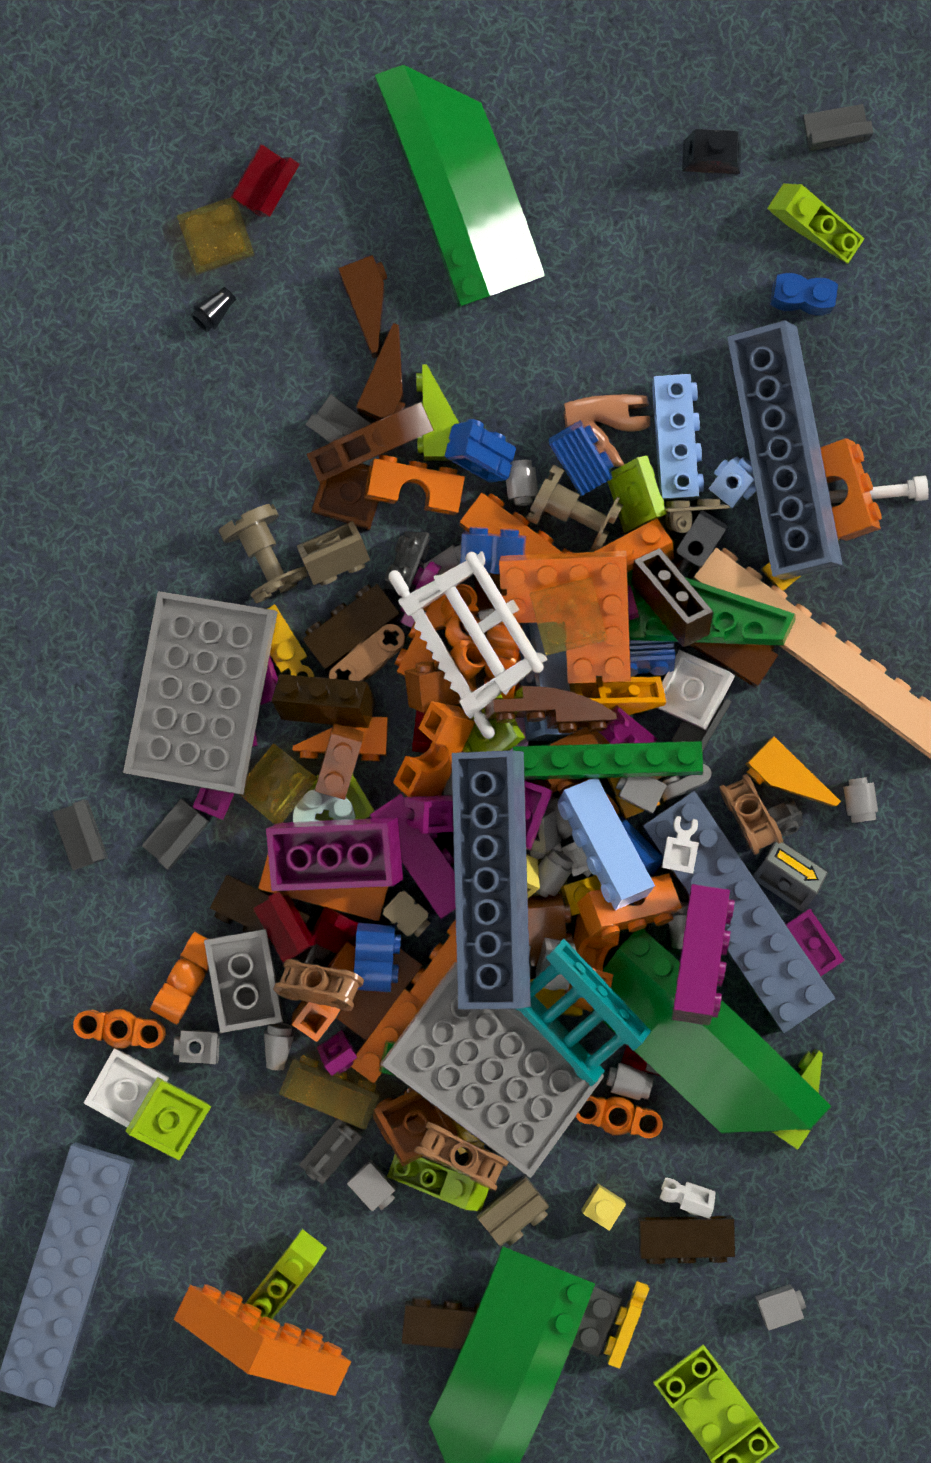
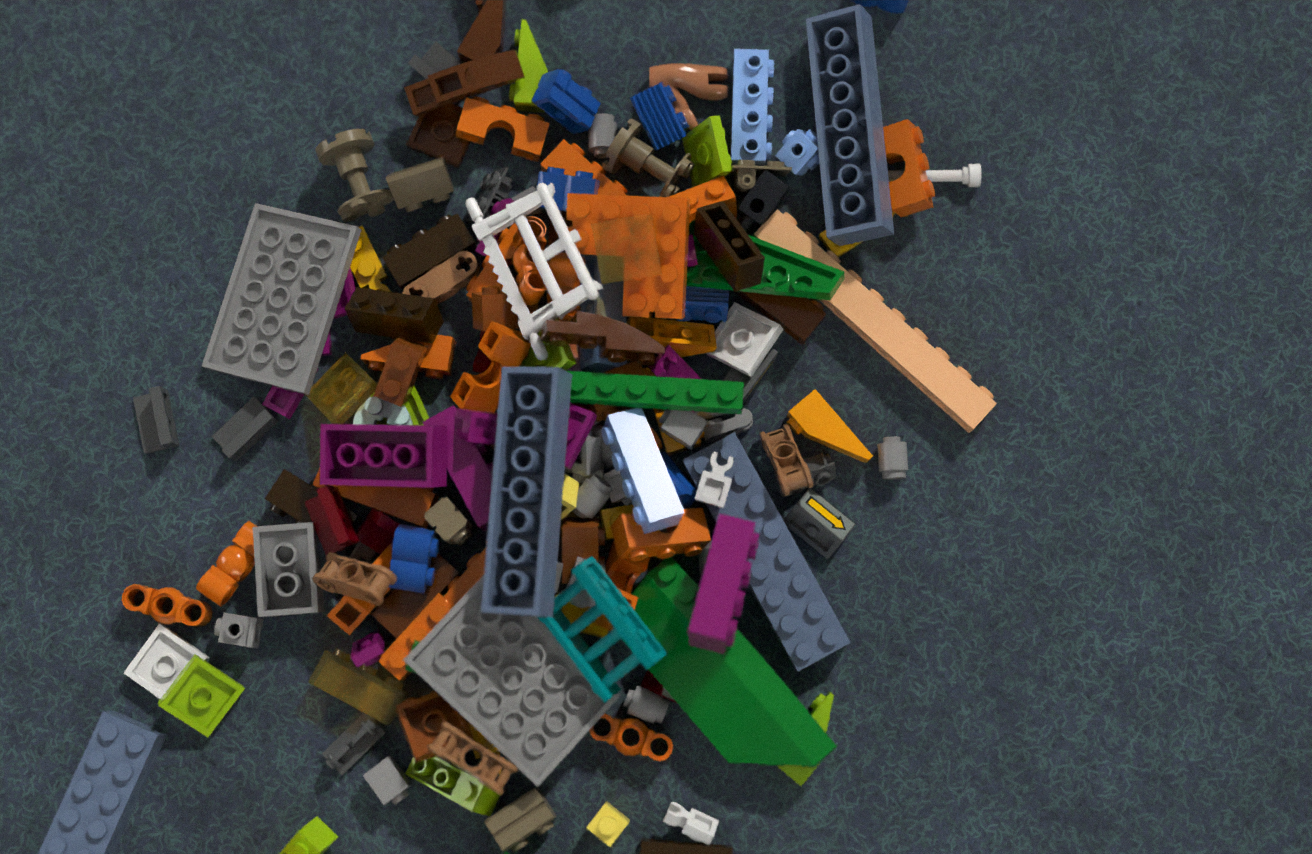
camera: 15 degrees right, 5 degrees down
(278, 1042) = (314, 636): light grey cone -> none
(815, 942) = (837, 588): magenta plate -> none

